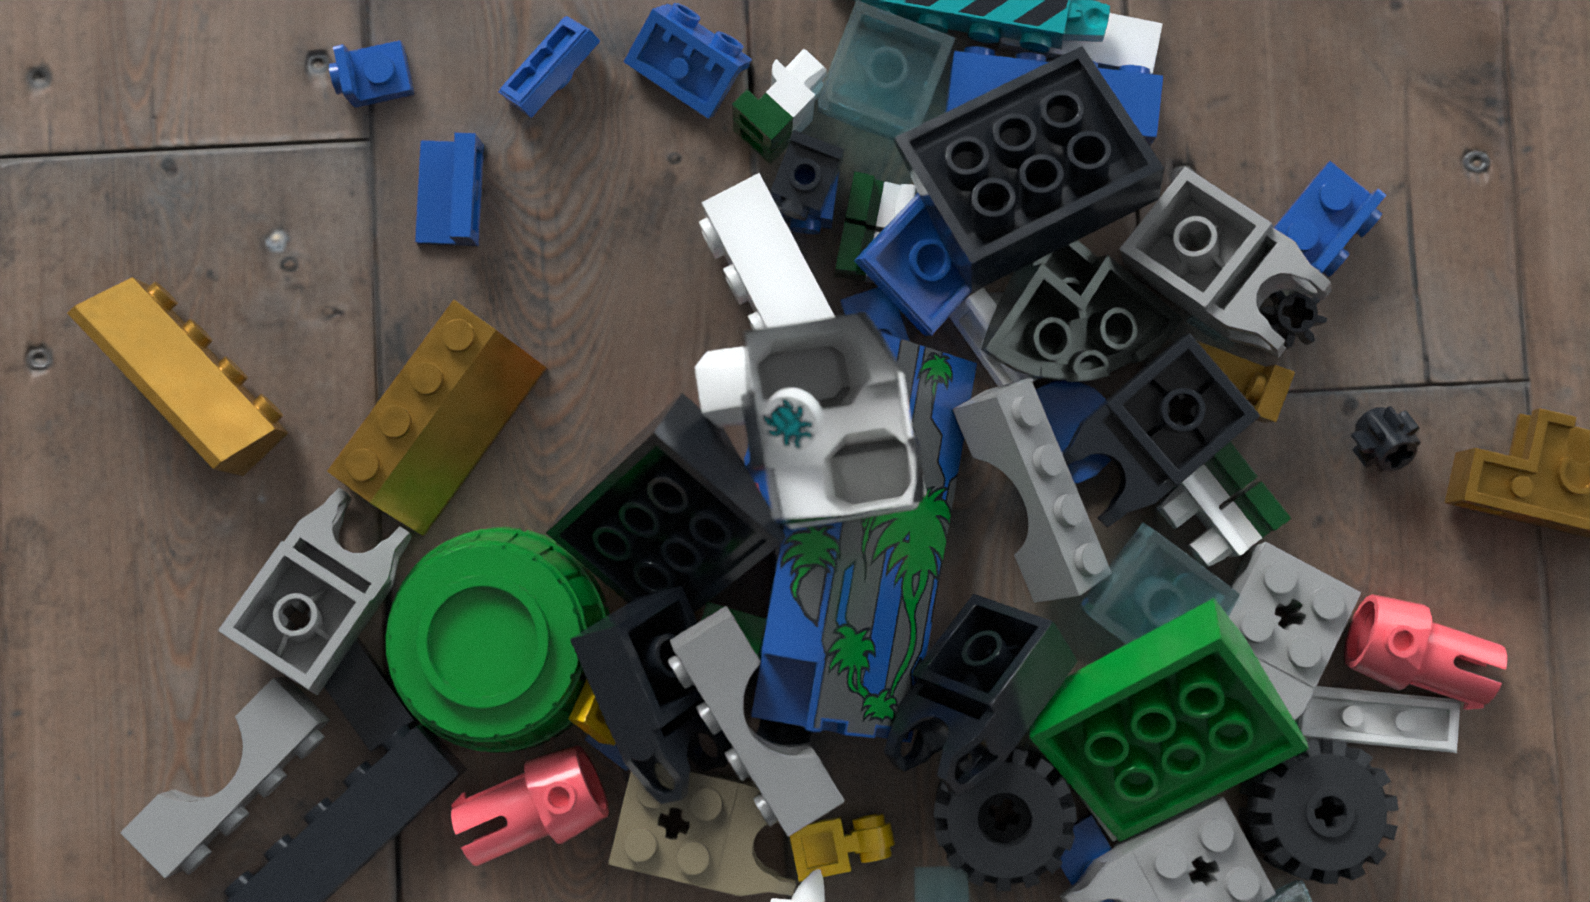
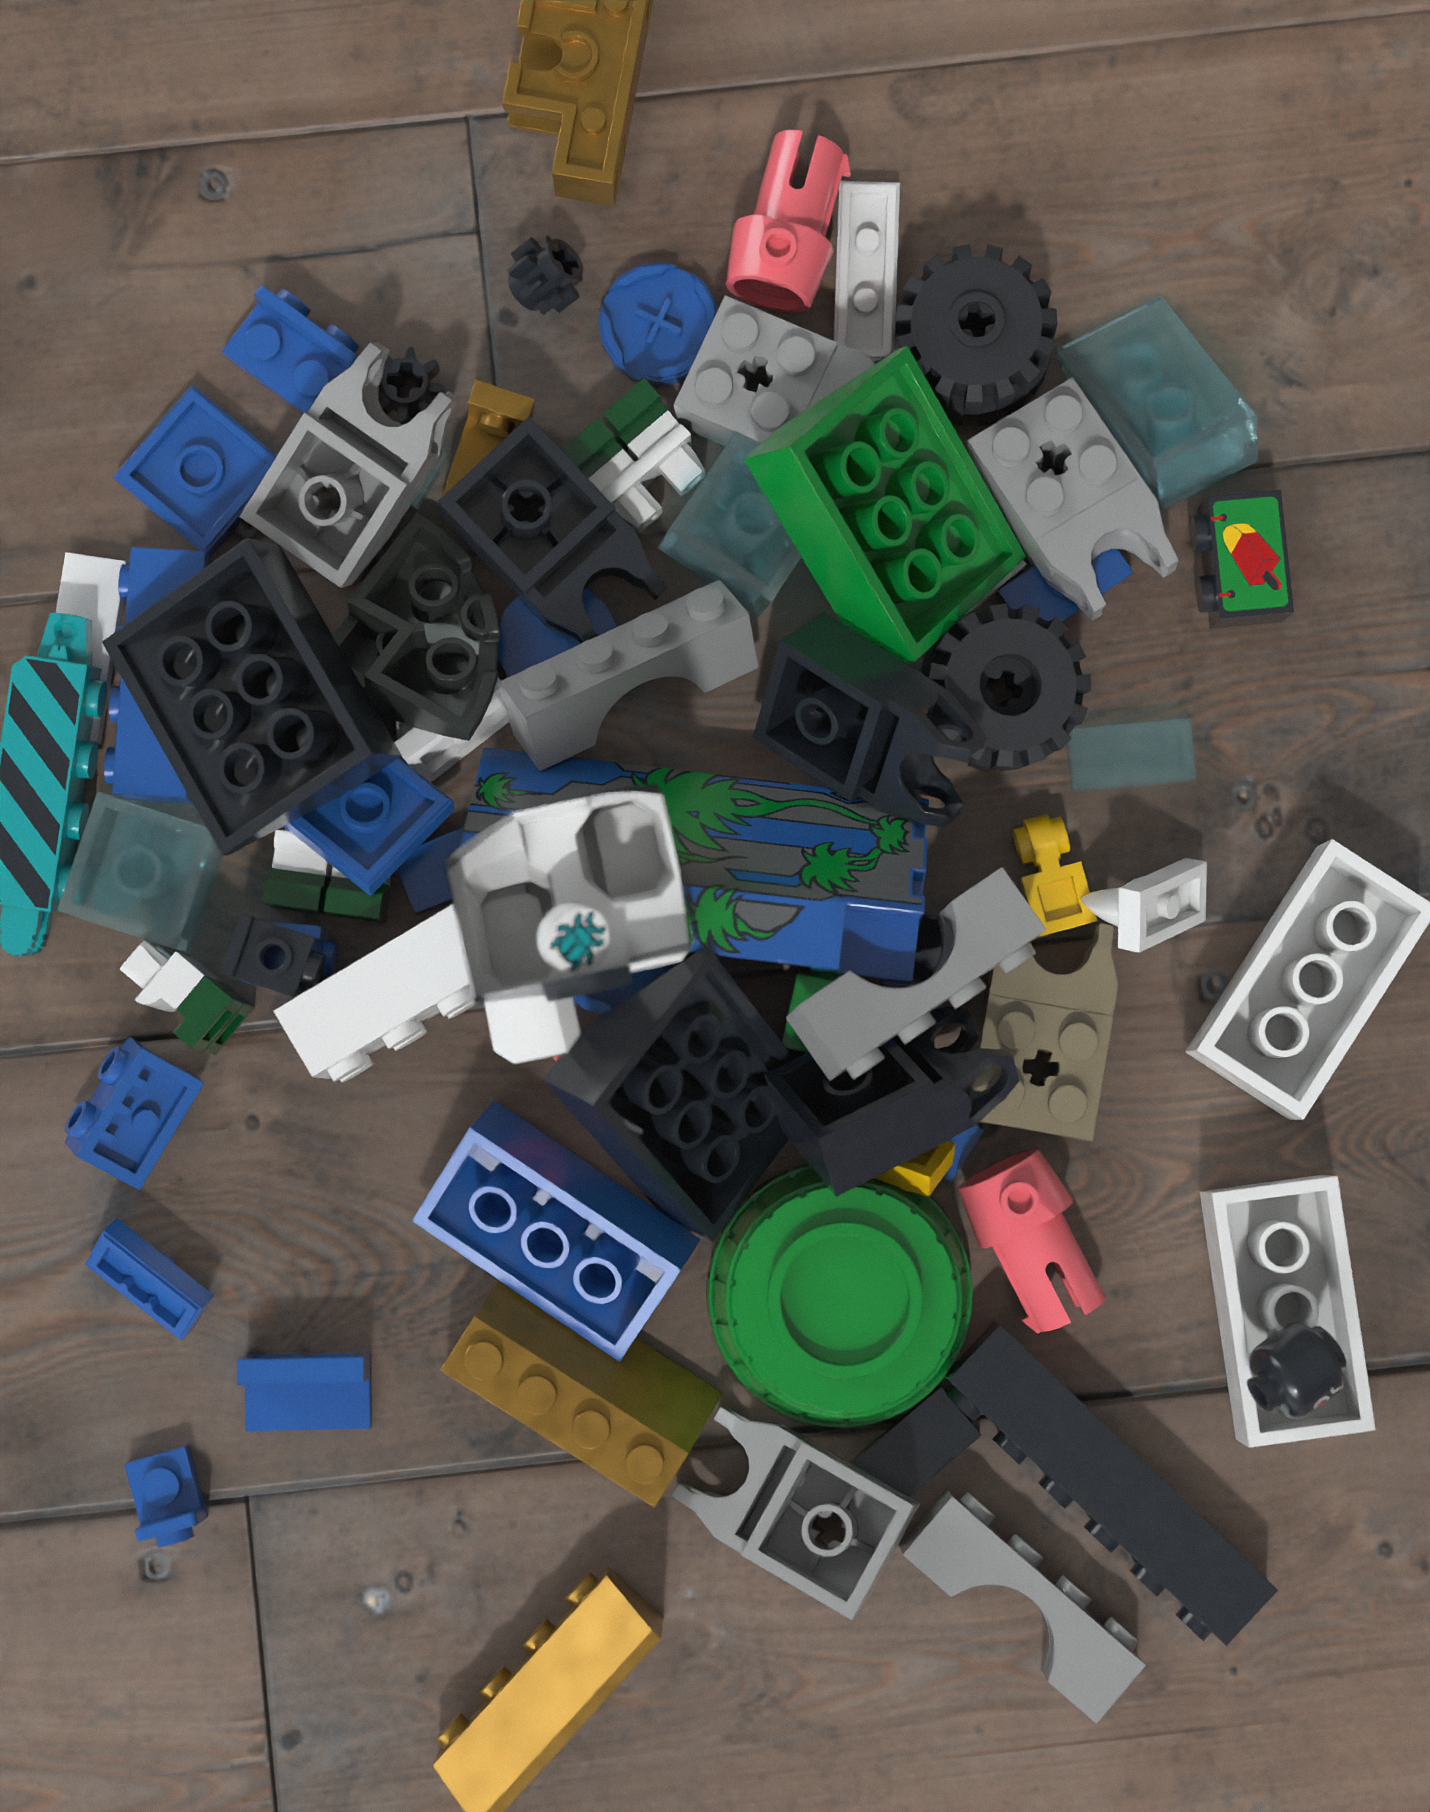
camera: 100 degrees left, 0 degrees up
(566, 403) = (555, 1229): none -> blue slope
(1227, 136) = (197, 470): none -> blue tile
(1340, 532) = (656, 322): none -> blue tile

